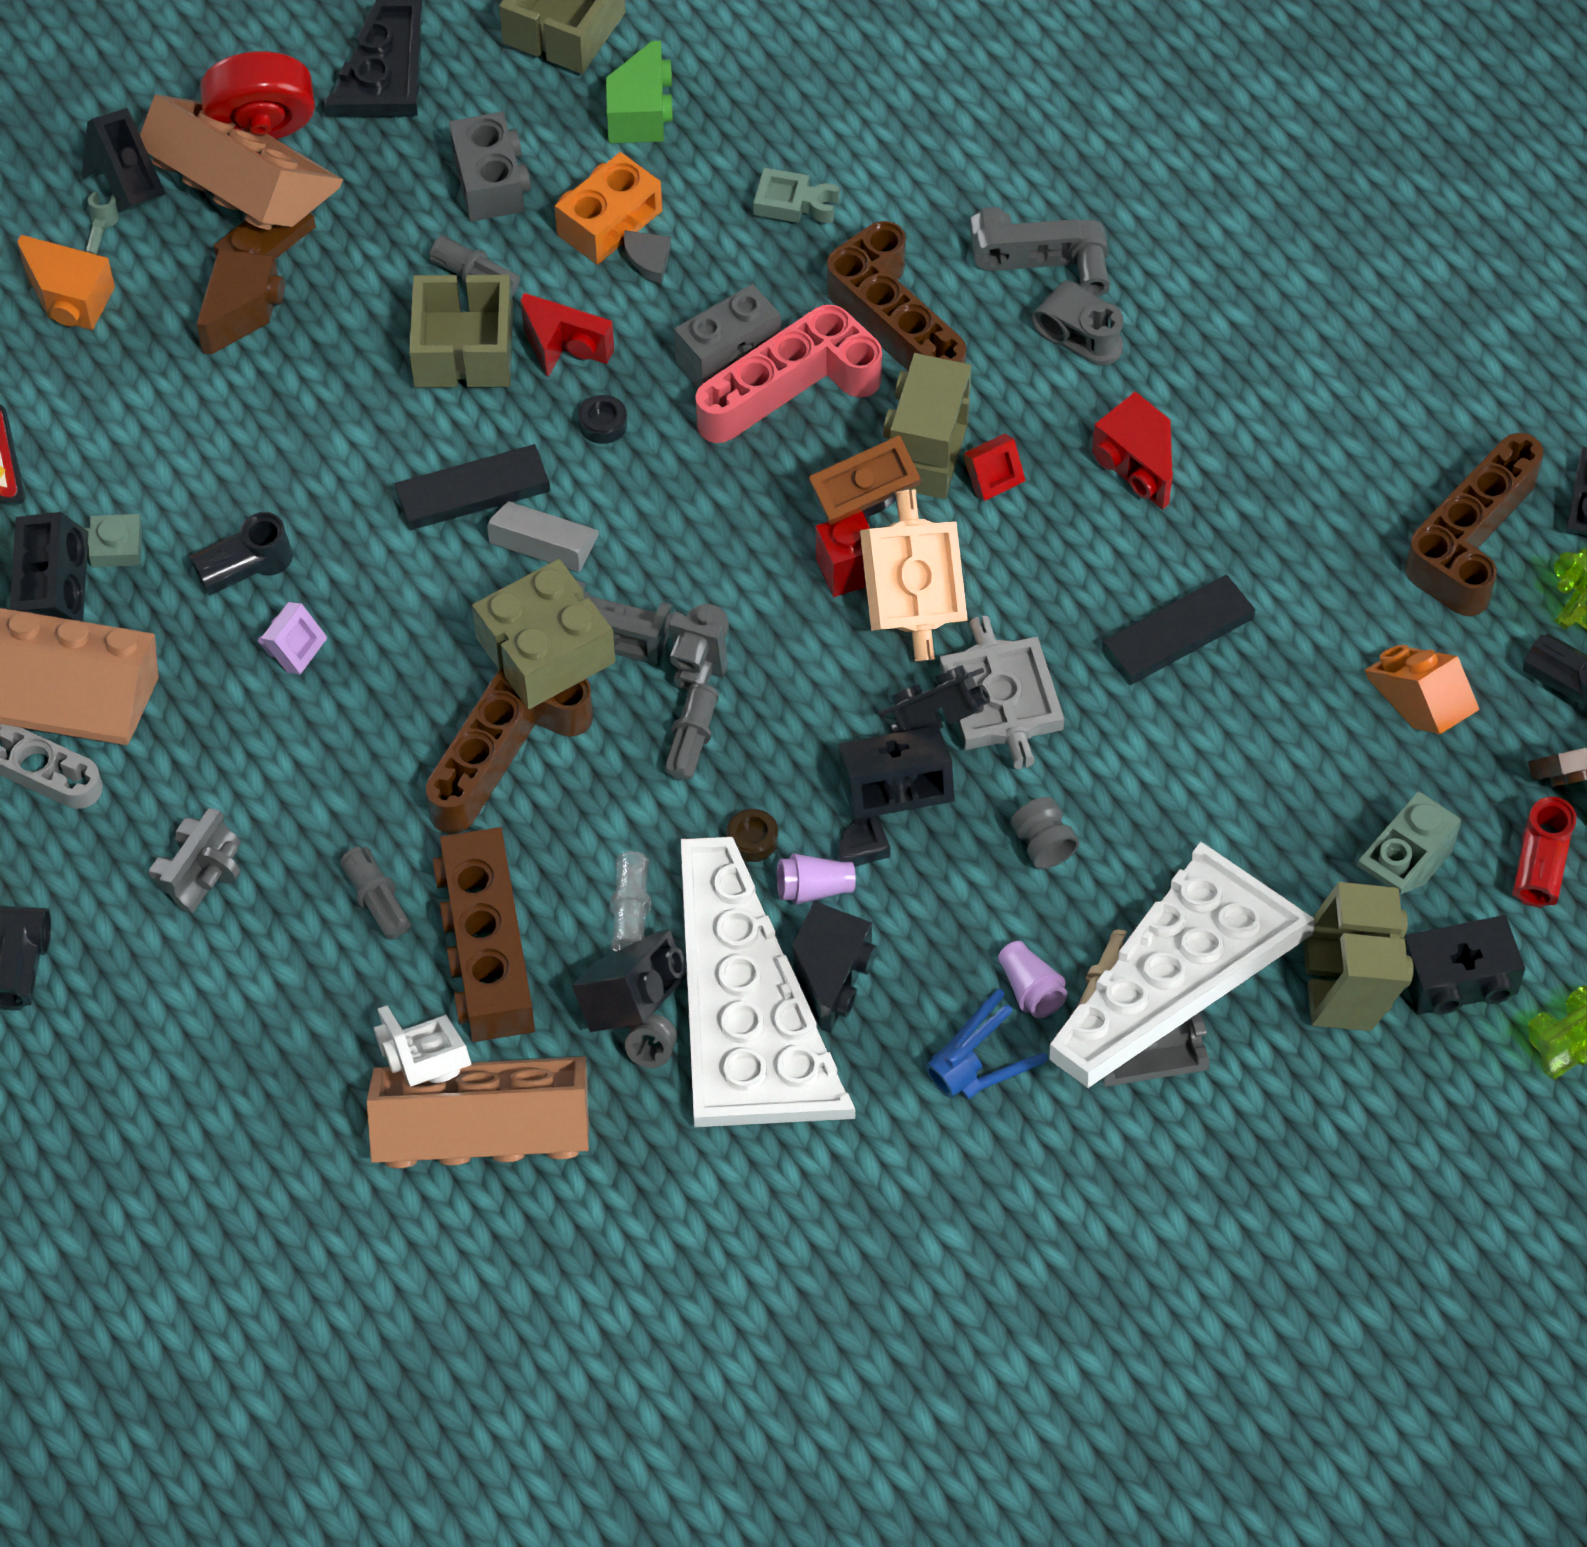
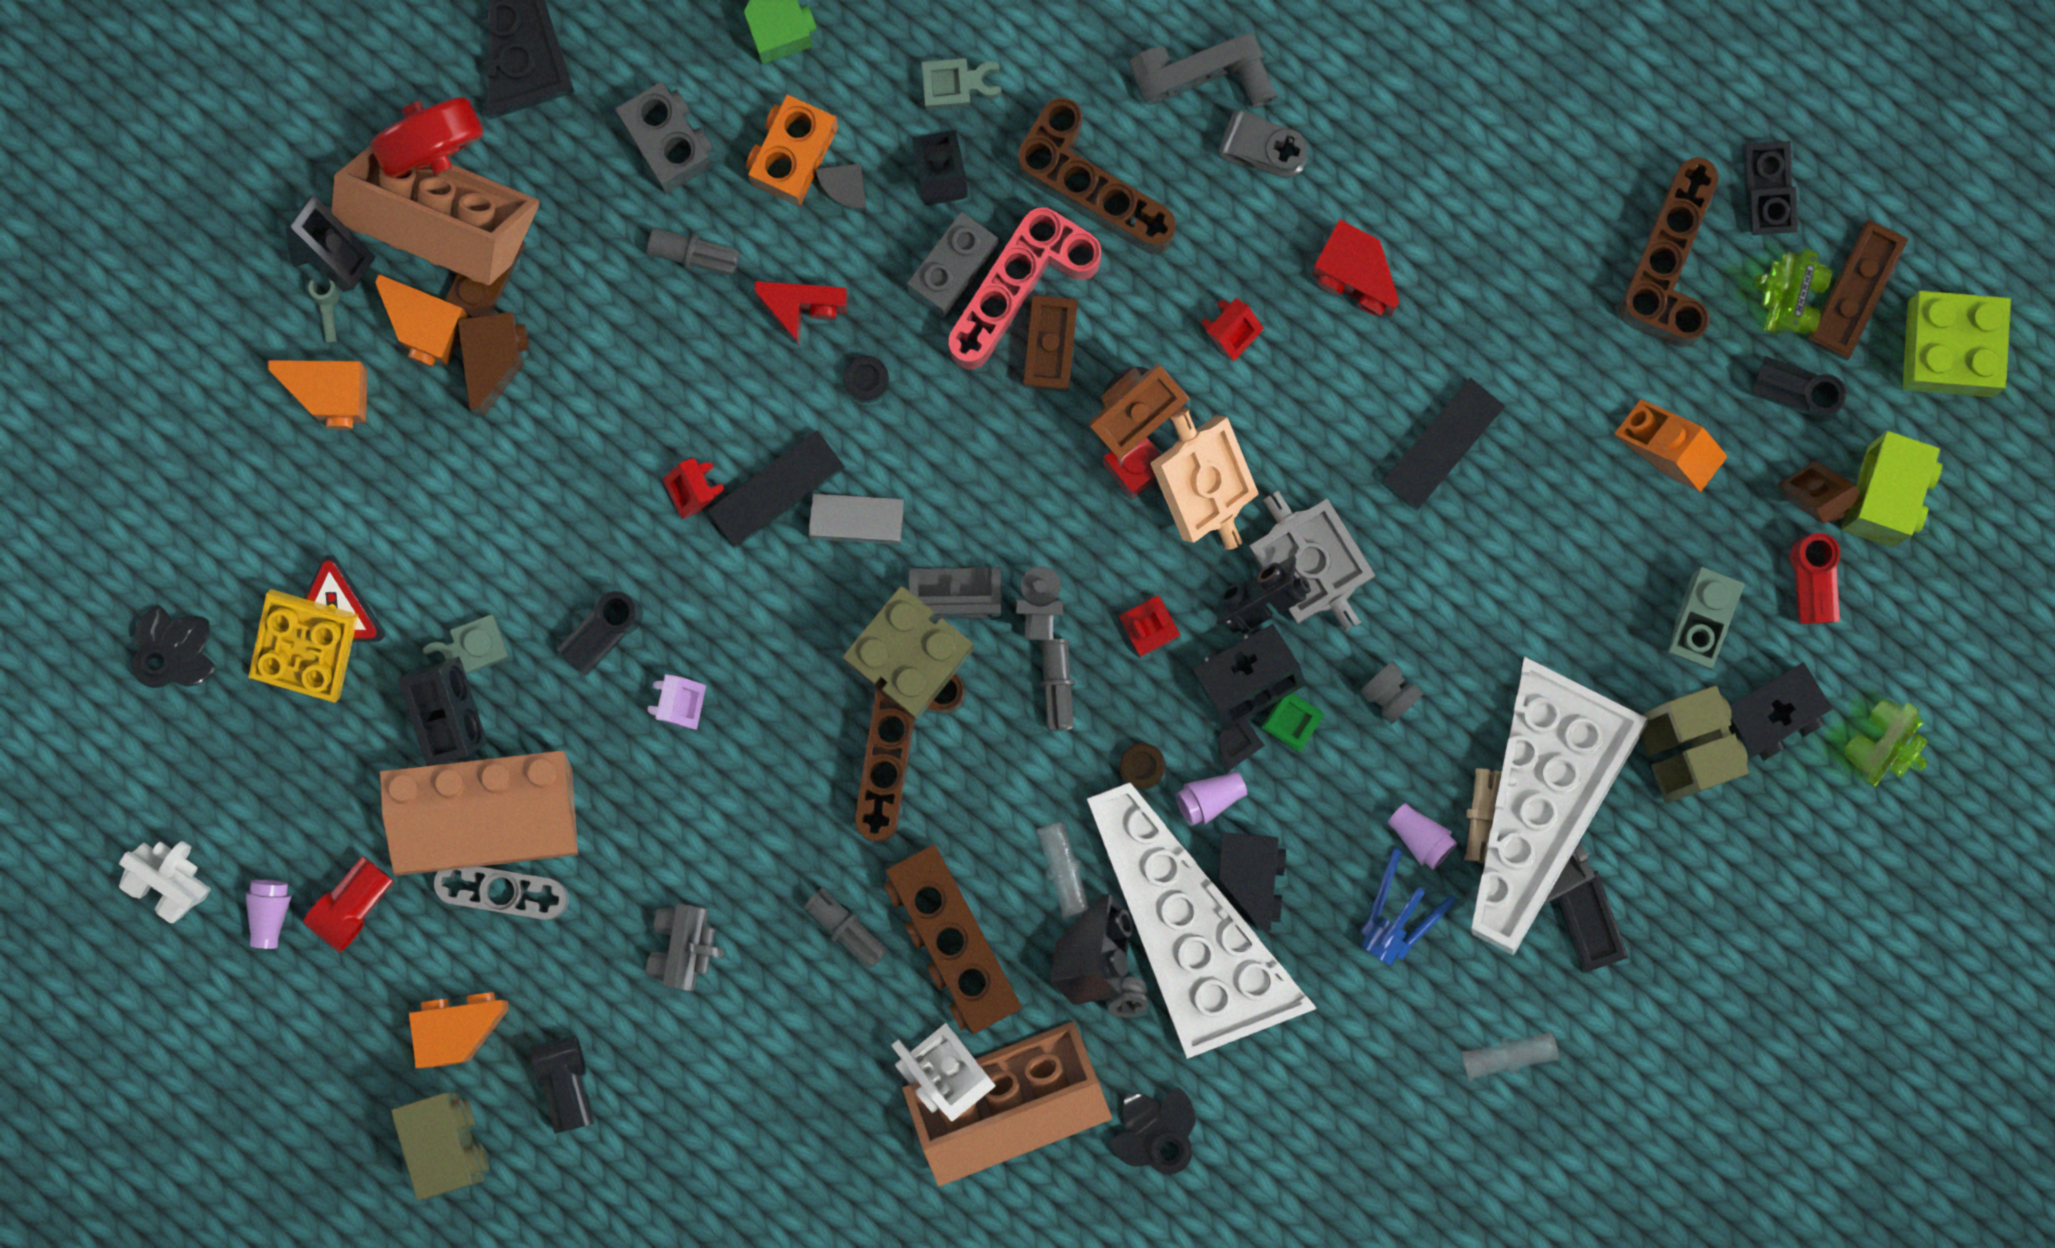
camera: 15 degrees left, 25 degrees up
(184, 250) = (421, 321): none -> orange slope
(386, 456) = (689, 488): none -> red tile
(457, 343) = (712, 338): olive piece -> none
(631, 1185) = (1153, 1125): none -> black plate
(747, 262) = (940, 167): none -> black slope
(801, 433) = (1050, 343): none -> reddish brown plate
(808, 709) = (1149, 626): none -> red tile
(929, 838) = (1292, 721): none -> green tile
(932, 419) = (1168, 313): olive piece -> none
(1056, 1223) = (1510, 1055): none -> clear pin
(1191, 1123) = (1592, 925): none -> black tile

